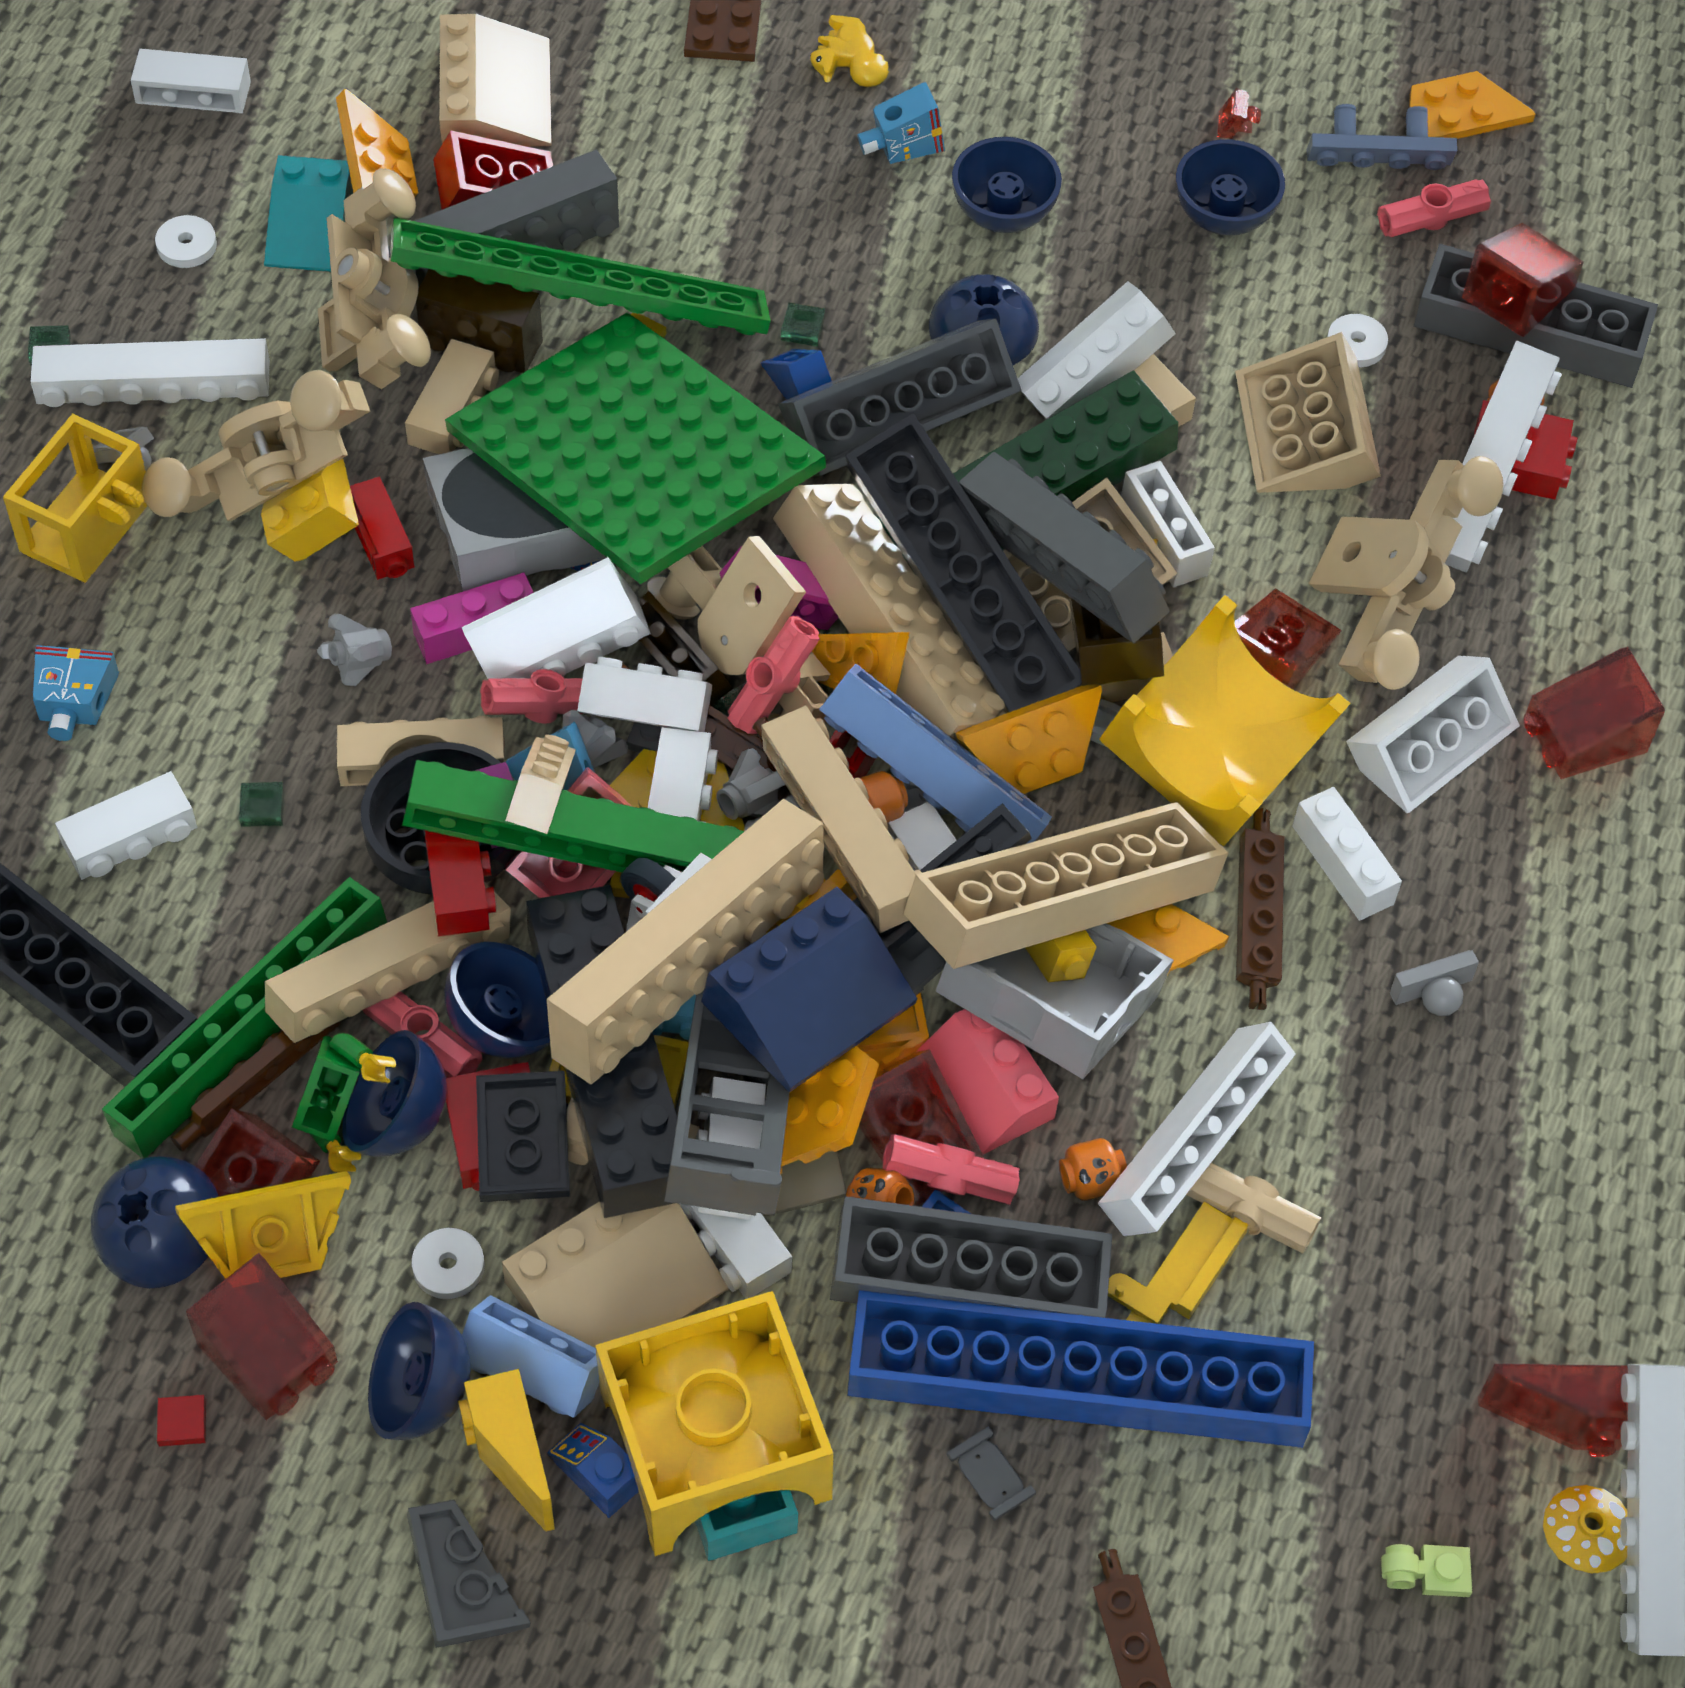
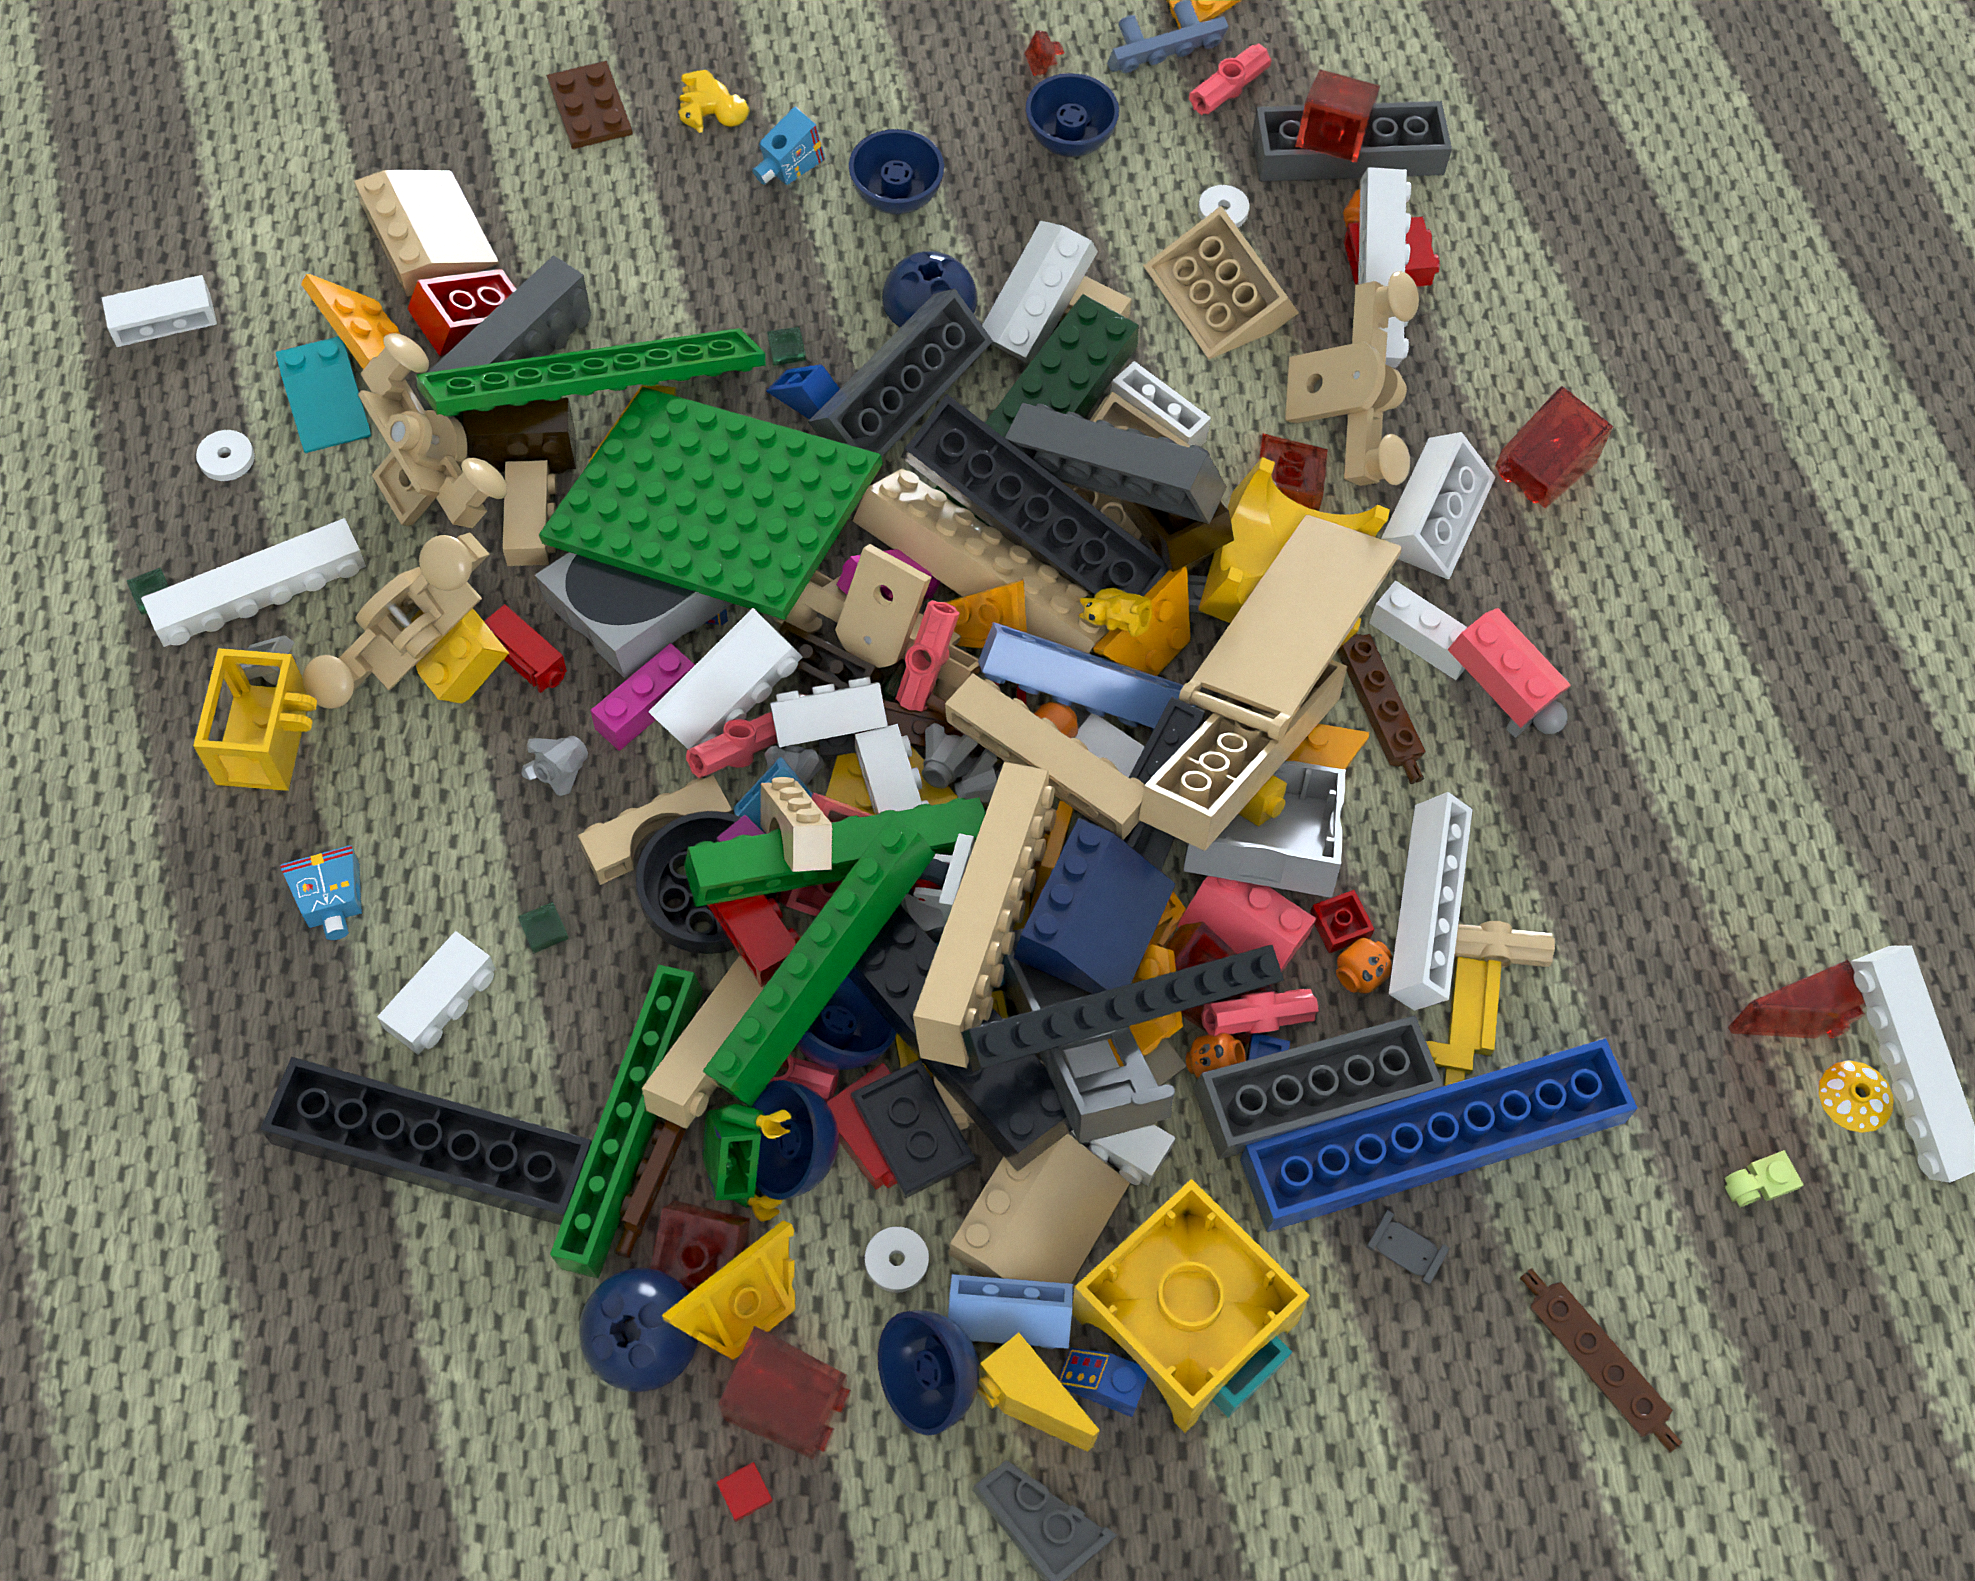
camera: 25 degrees left, 5 degrees up
(498, 925) = (819, 962): none -> green brick
(786, 1089) = (1119, 1007): none -> black plate
(996, 699) = (1118, 610): none -> yellow animal
(1093, 1114) = (1341, 921): none -> red piece
(1180, 782) = (1292, 624): none -> tan flag
(1411, 917) = (1508, 666): none -> coral slope

